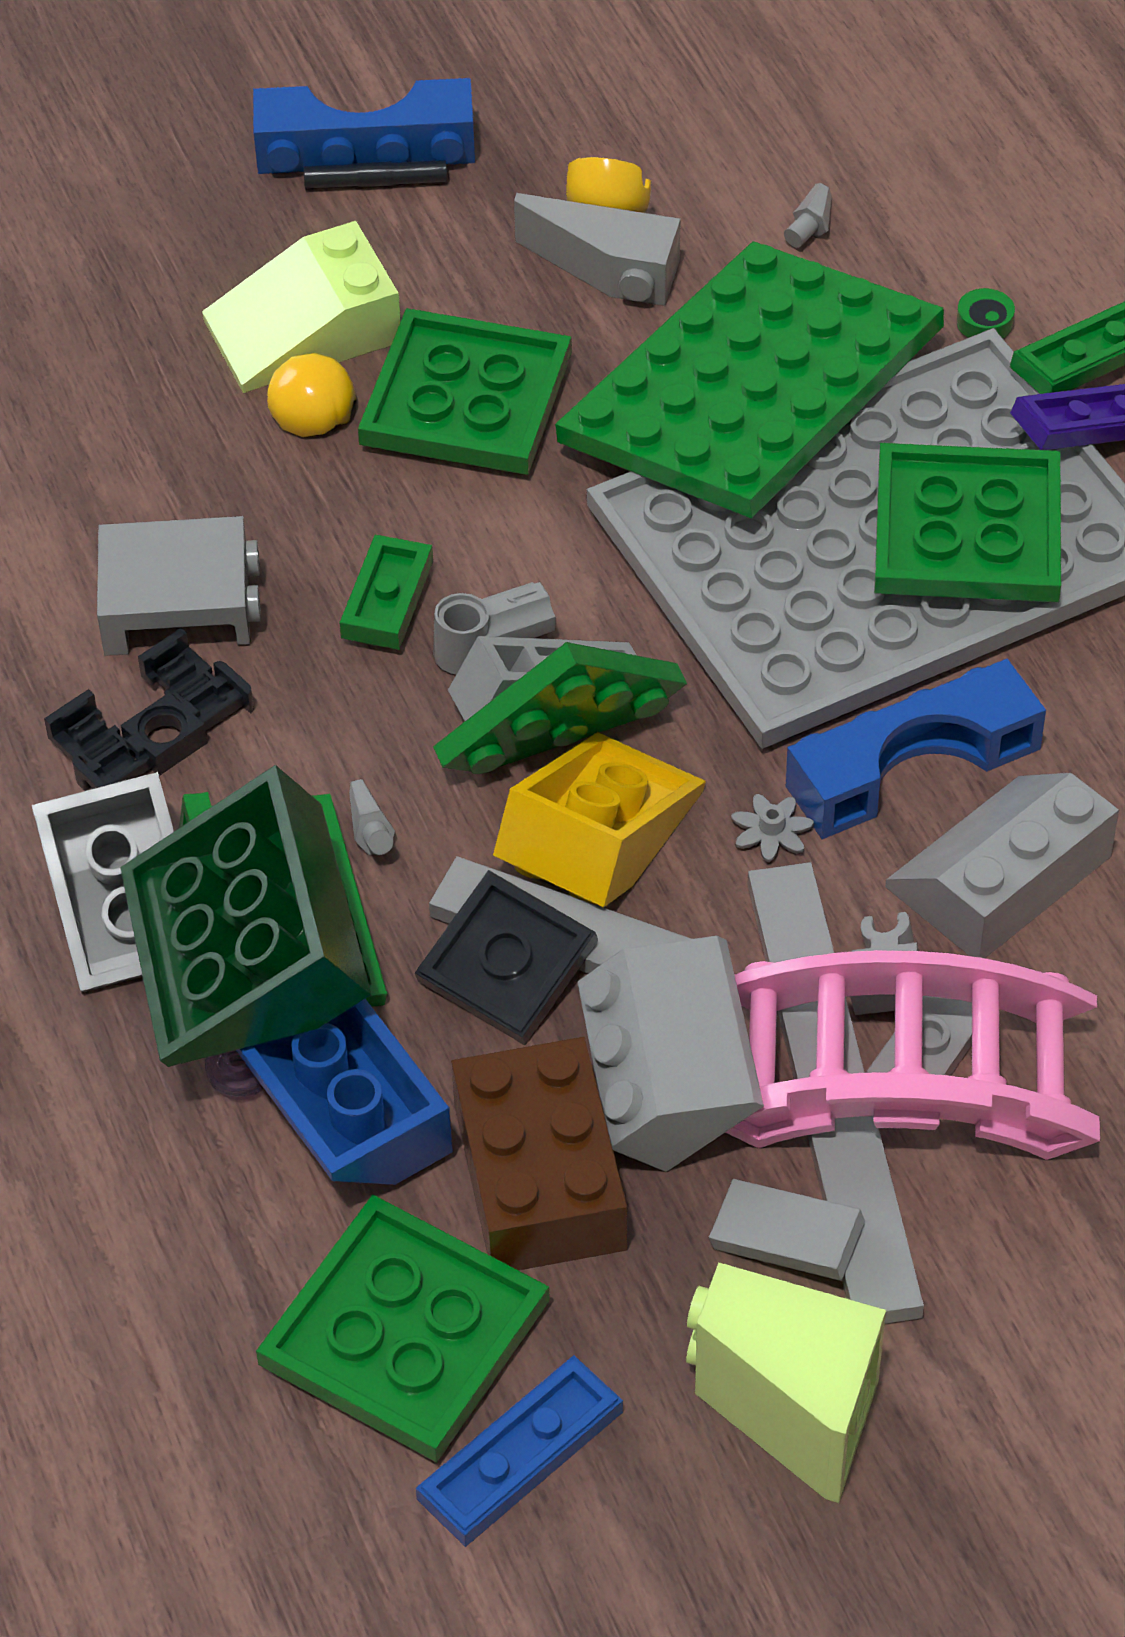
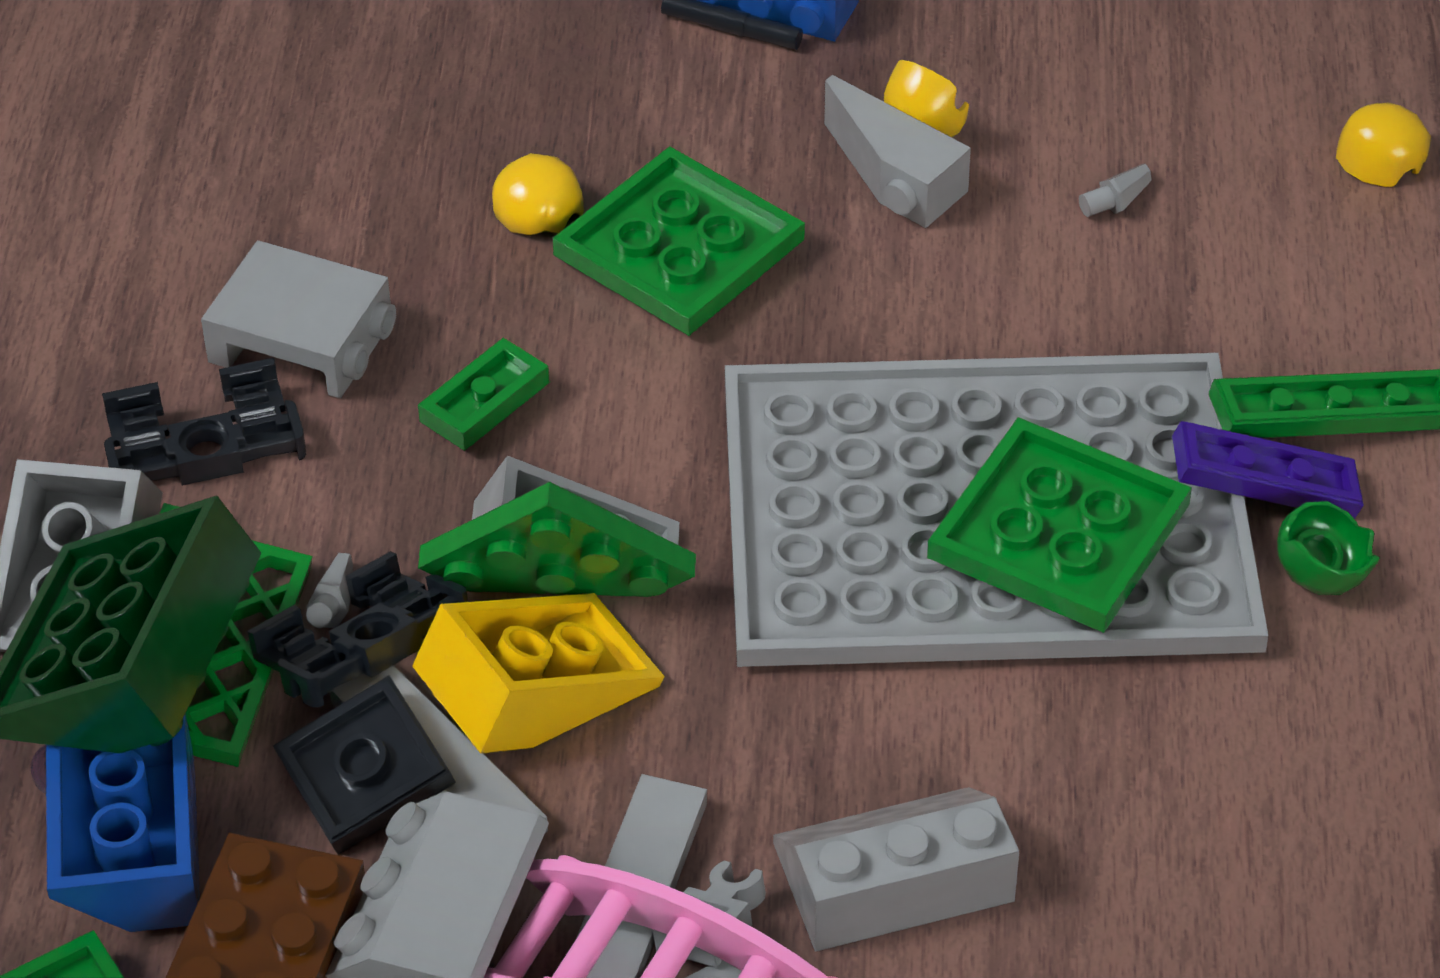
camera: 25 degrees right, 5 degrees down
(312, 298) = (590, 113): yellowish green slope -> none
(447, 815) = (363, 645): none -> black piece
(464, 617) = (573, 454): light grey piece -> none
(750, 378) = (949, 317): green plate -> none
(771, 826) = (698, 743): light grey plant -> none
(979, 717) = (952, 710): blue arch -> none
(984, 310) = (1231, 336): green tile -> none
(1006, 98) = (1383, 144): none -> yellow hair

